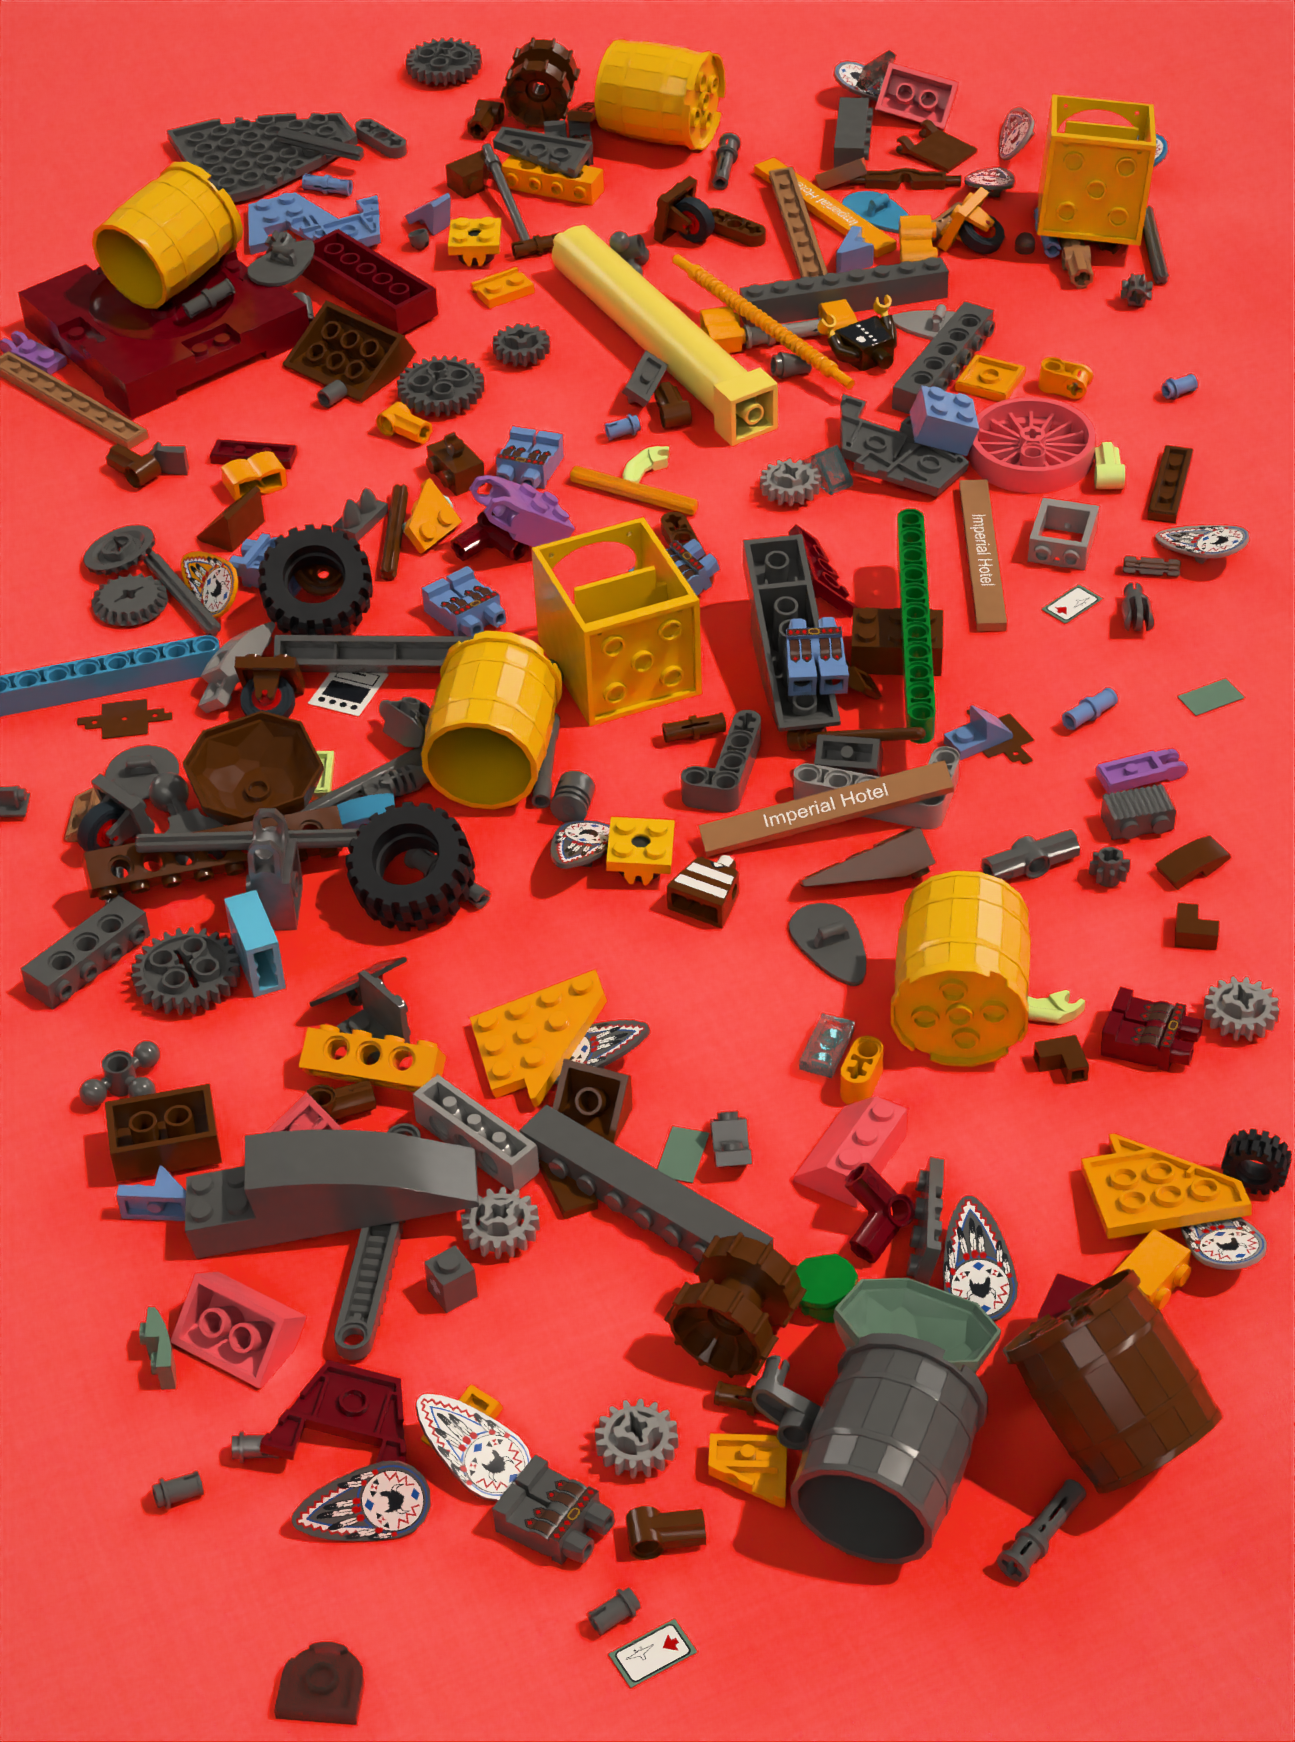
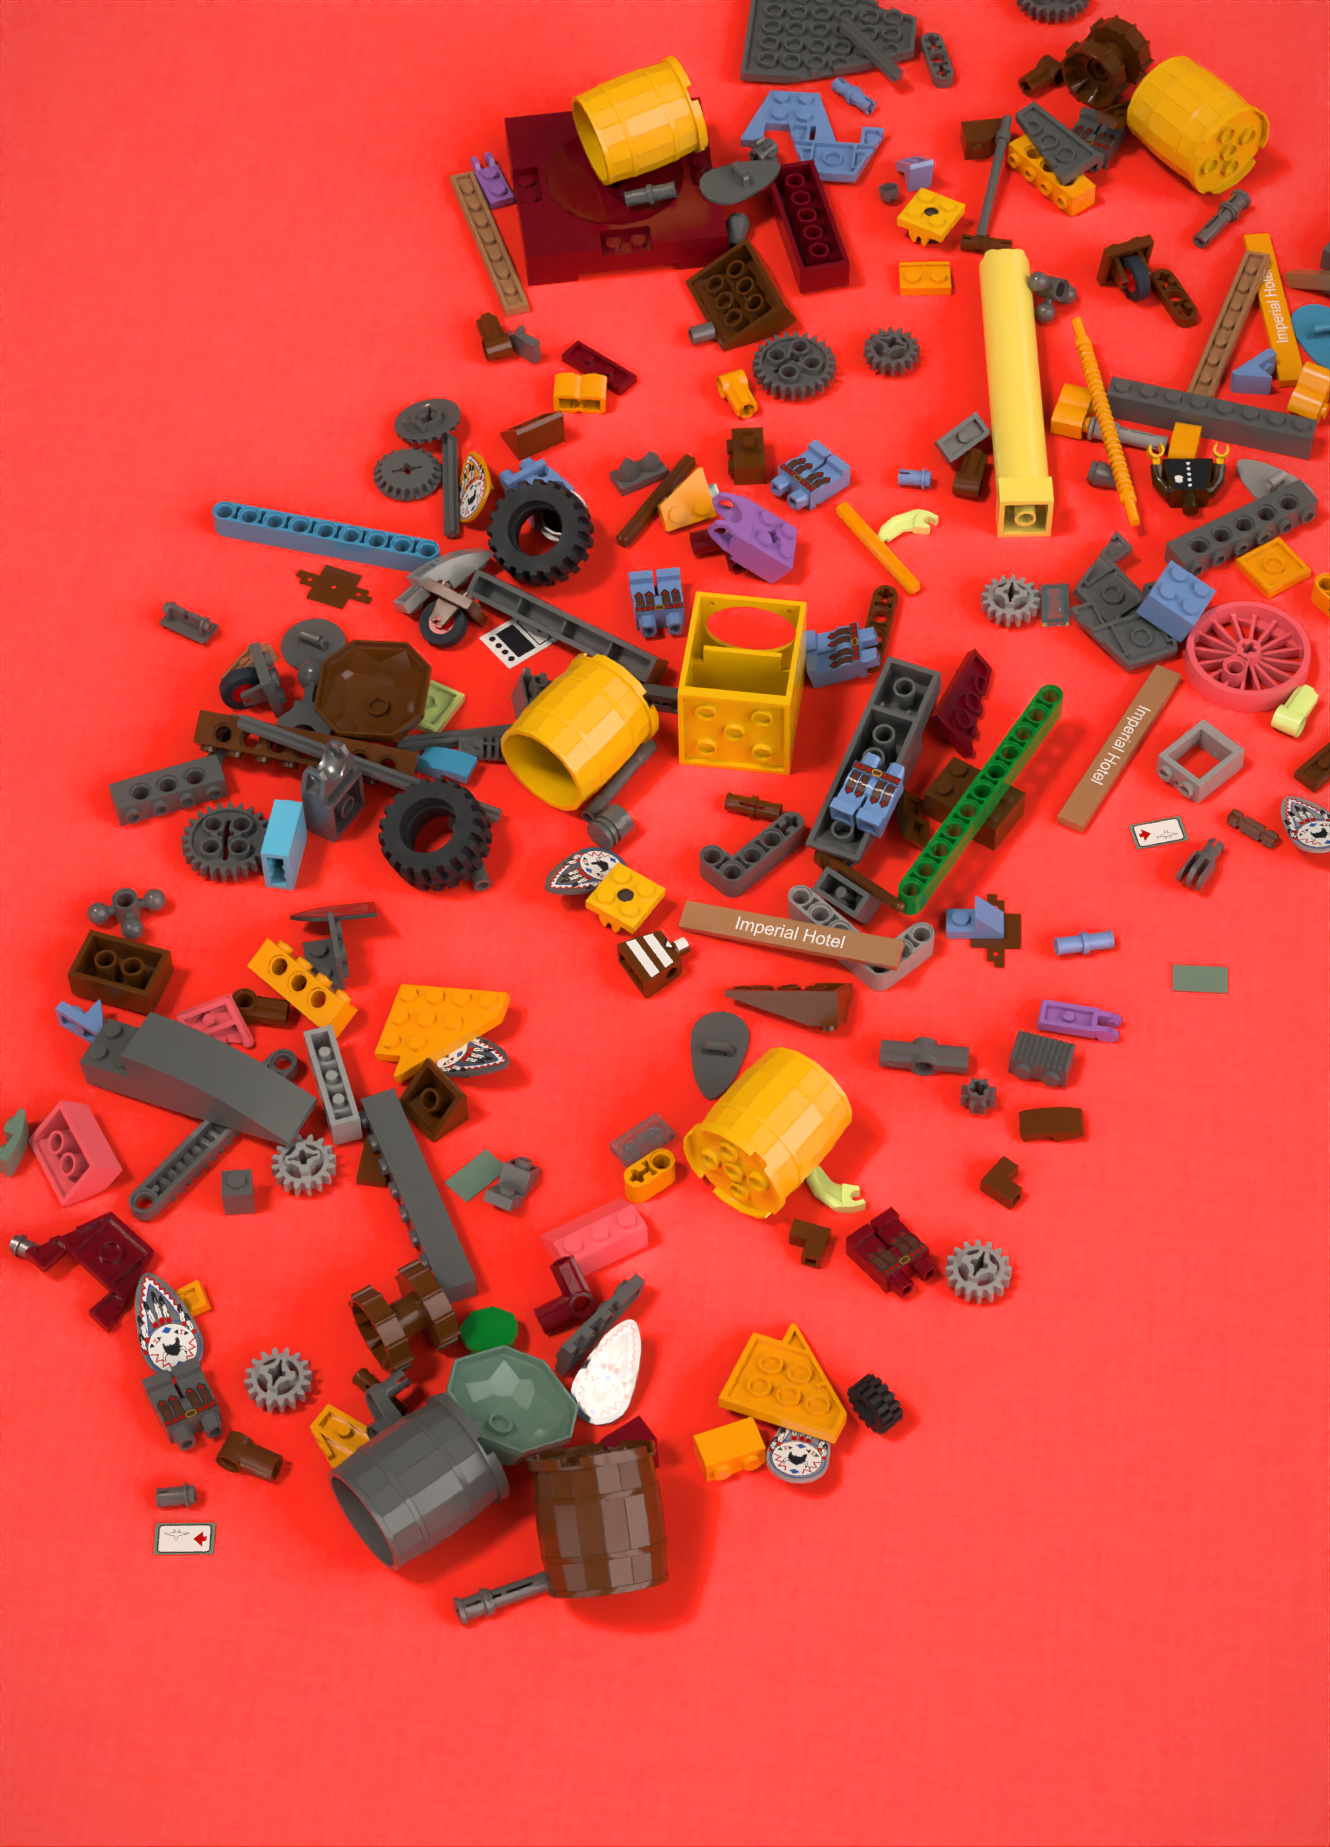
camera: 30 degrees right, 10 degrees up
(367, 1504) = (67, 1332): shield -> none

